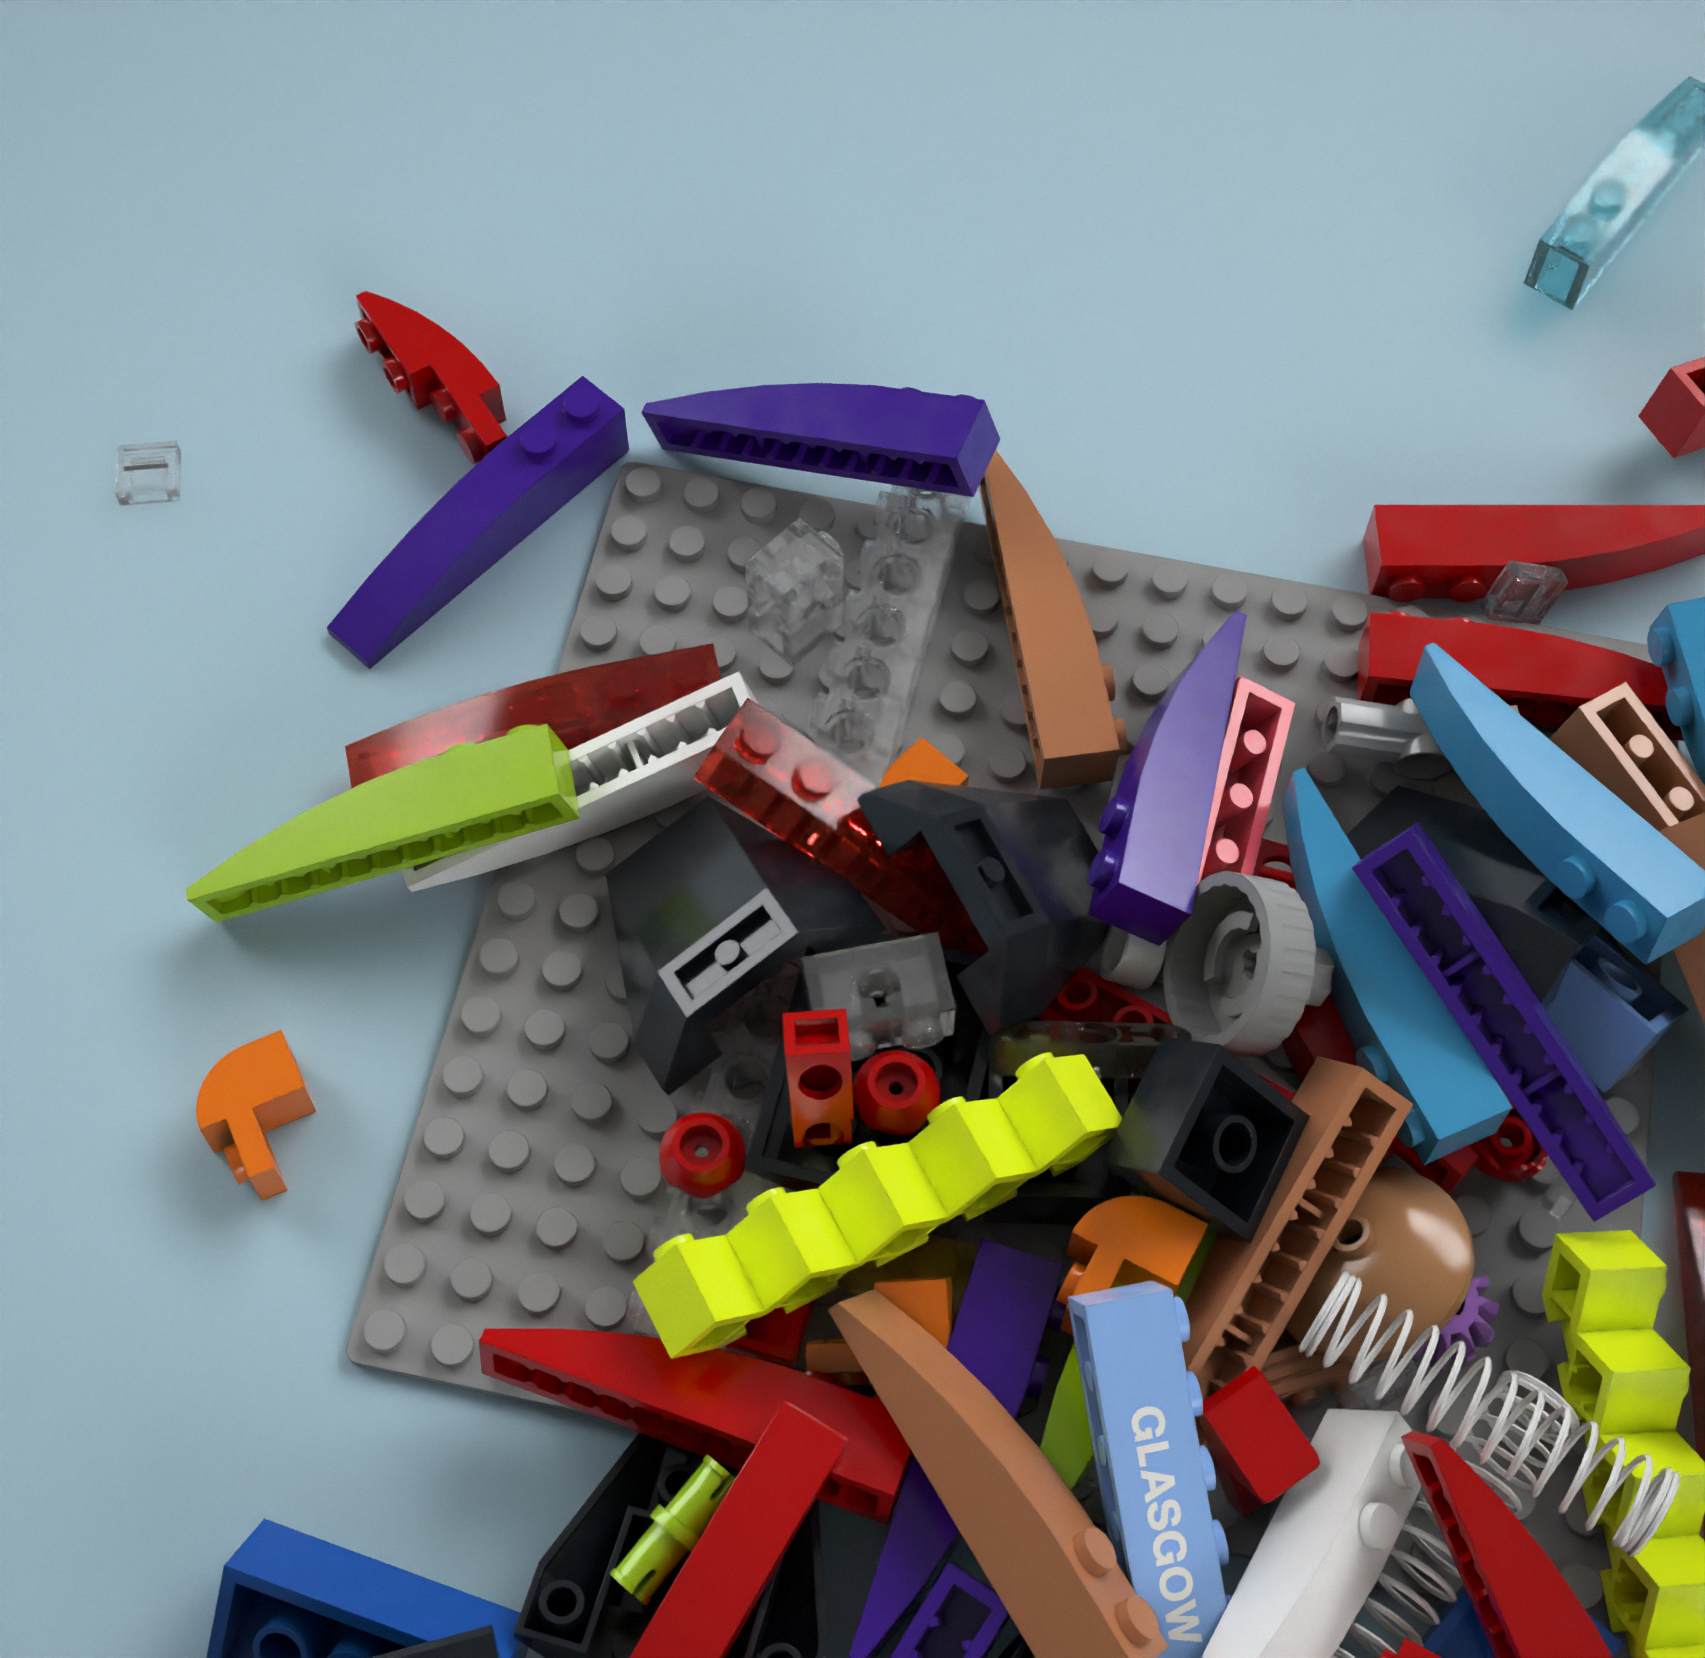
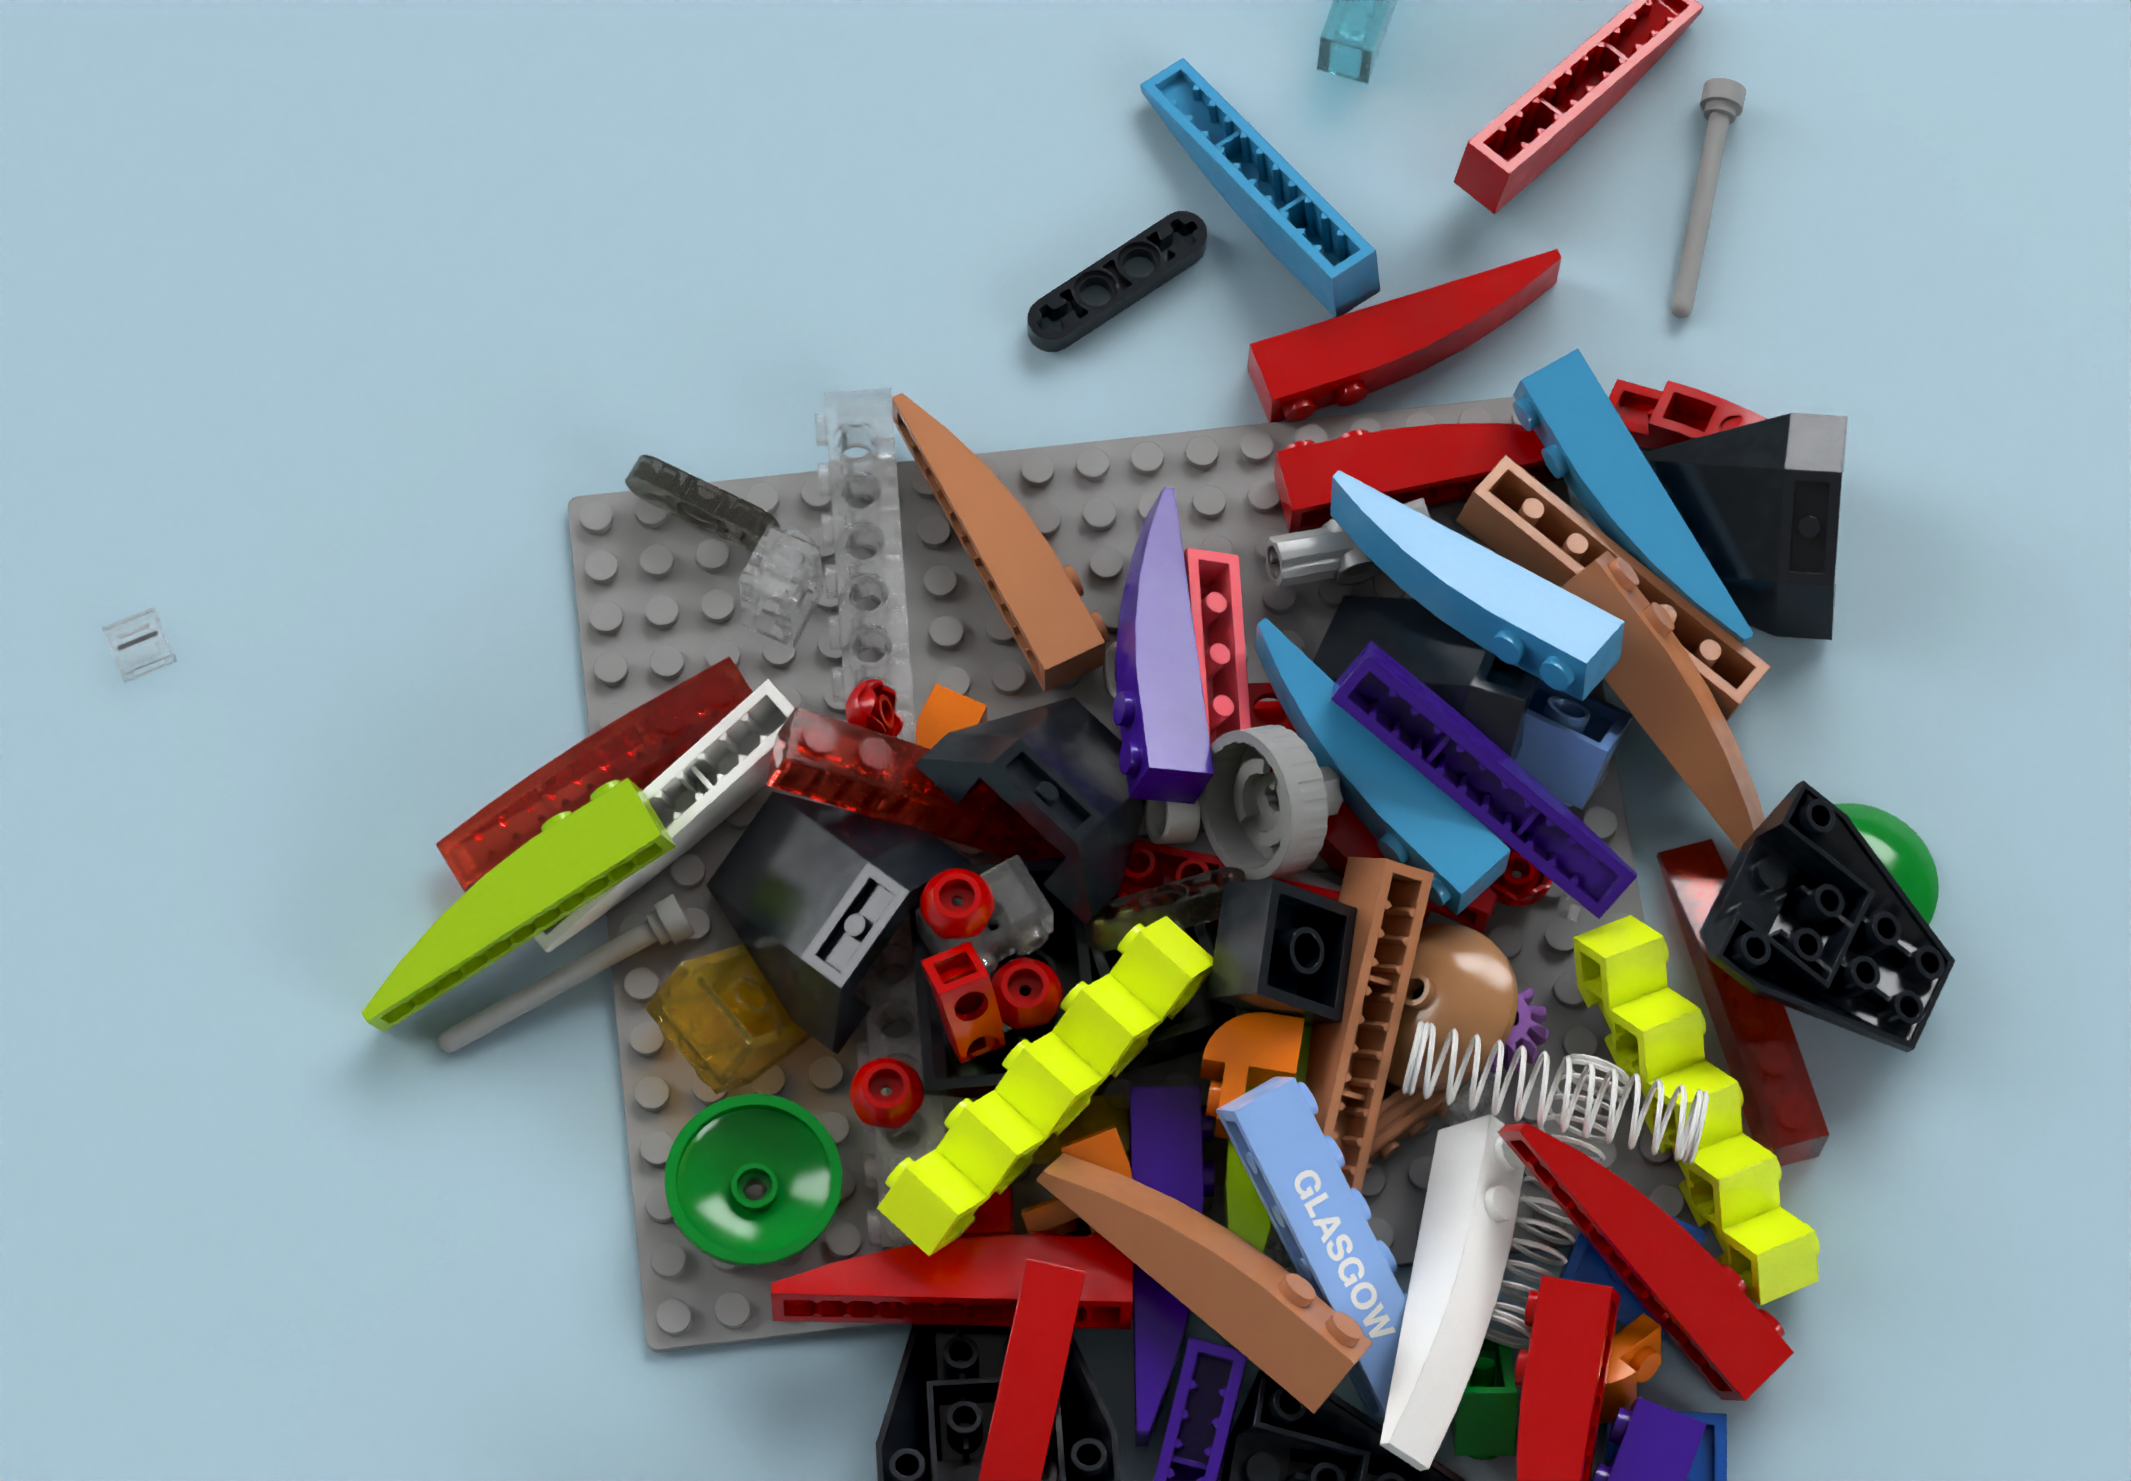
camera: 20 degrees left, 5 degrees up
(244, 1099) = (484, 1167): orange brick -> none
(434, 371) = (362, 461): red slope -> none
(484, 518) = (468, 596): dark purple slope -> none
(510, 1165) = (744, 1145): none -> green dish
(545, 900) = (662, 925): none -> light grey piece
(564, 1018) = (725, 1018): none -> clear yellow slope
(673, 1531) = (973, 1384): lime pin -> none
(740, 487) = (699, 502): none -> clear smoke beam
(837, 431) = (765, 423): dark purple slope -> none
(844, 735) = (873, 707): none -> red plate
(854, 983) = (962, 920): none -> red plate
(1250, 409) = (1123, 287): none -> black beam
(1254, 1442) = (1390, 1173): red slope -> none
(1440, 375) = (1266, 190): none -> dark azure slope
(1523, 593) = (1400, 385): clear tile -> none

